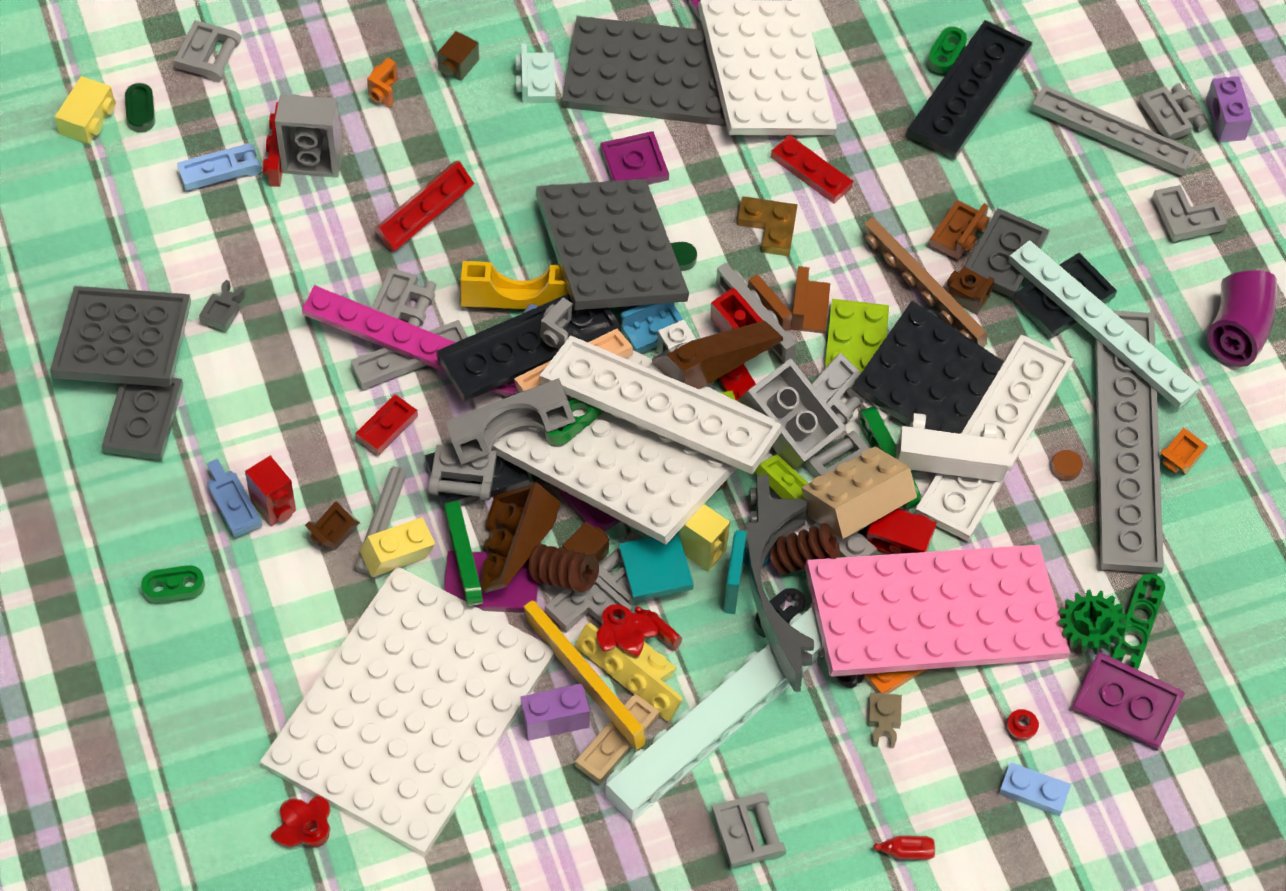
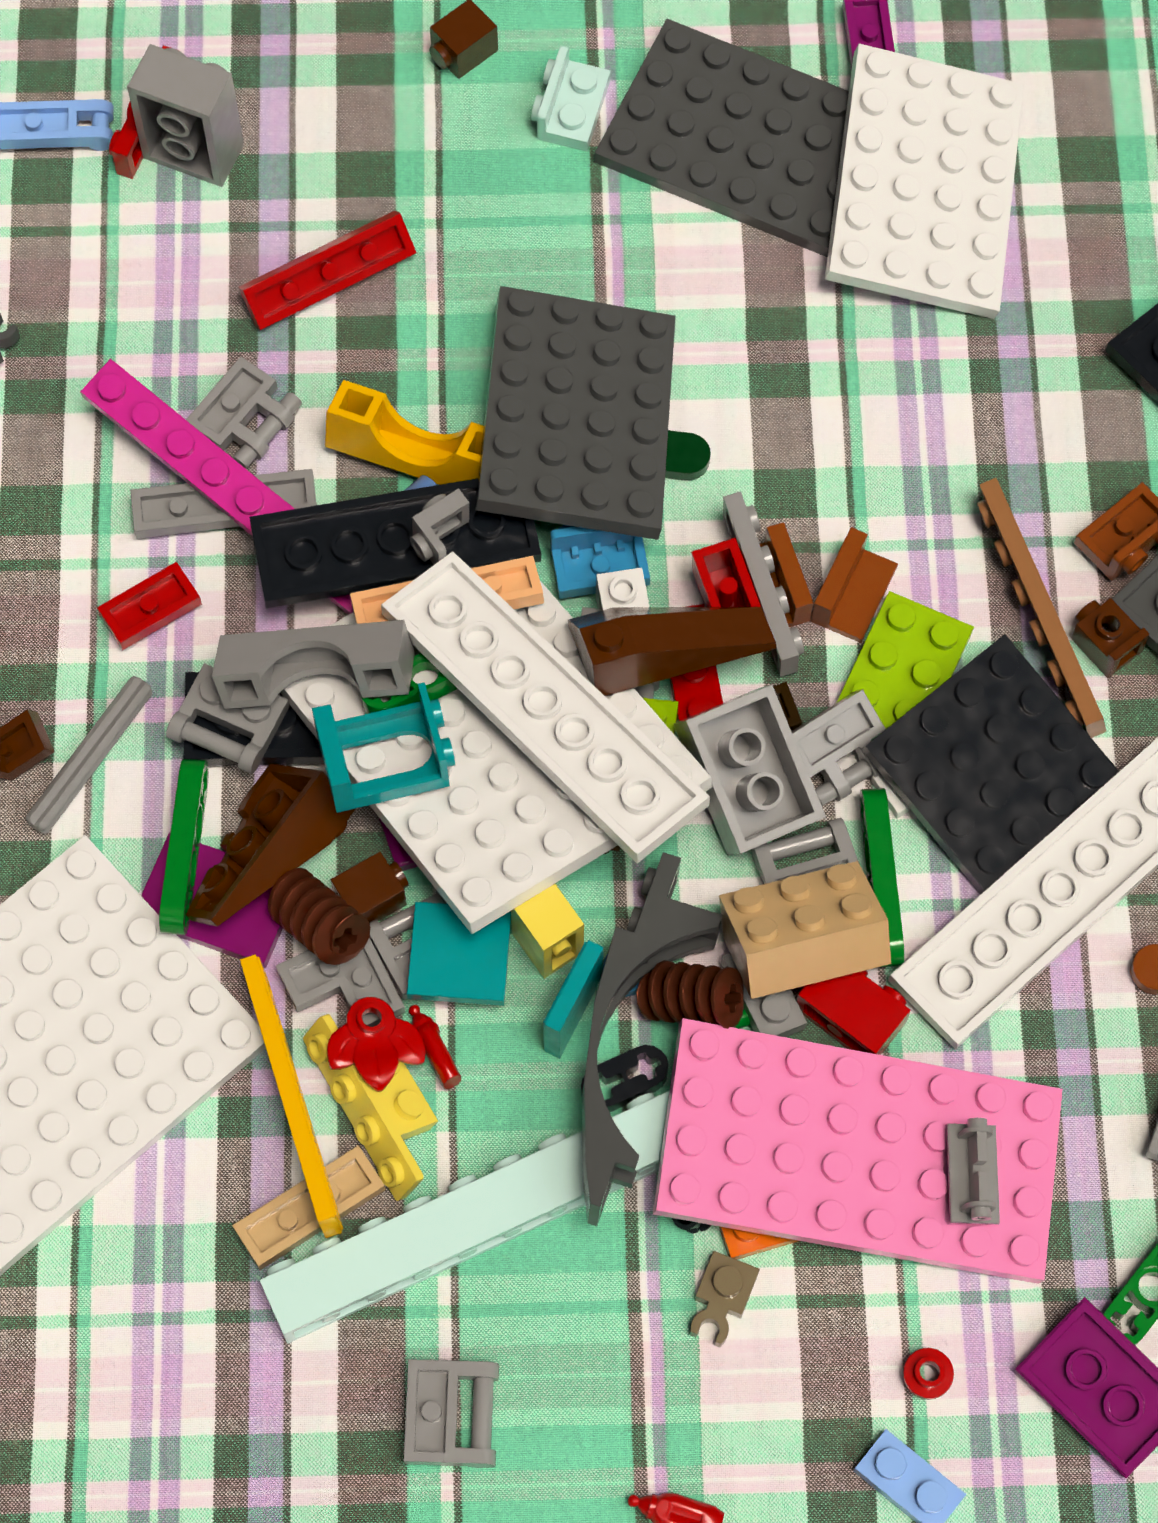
camera: 20 degrees right, 10 degrees up
(380, 82) = (334, 49): orange bracket -> none
(397, 547) = (90, 809): light yellow brick -> none
(555, 711) = (230, 1138): medium lavender brick -> none
(589, 434) = (412, 719): none -> teal panel
(635, 158) = (672, 277): magenta tile -> none
(774, 217) = (852, 437): pearl gold plate -> none
(782, 478) = (705, 865): lime plate -> none
(811, 169) = (937, 367): red plate -> none
(953, 452) = (976, 906): white brick -> none
(1008, 599) = (973, 1172): none -> light grey hinge
(1107, 617) = (1113, 1250): green gear -> none

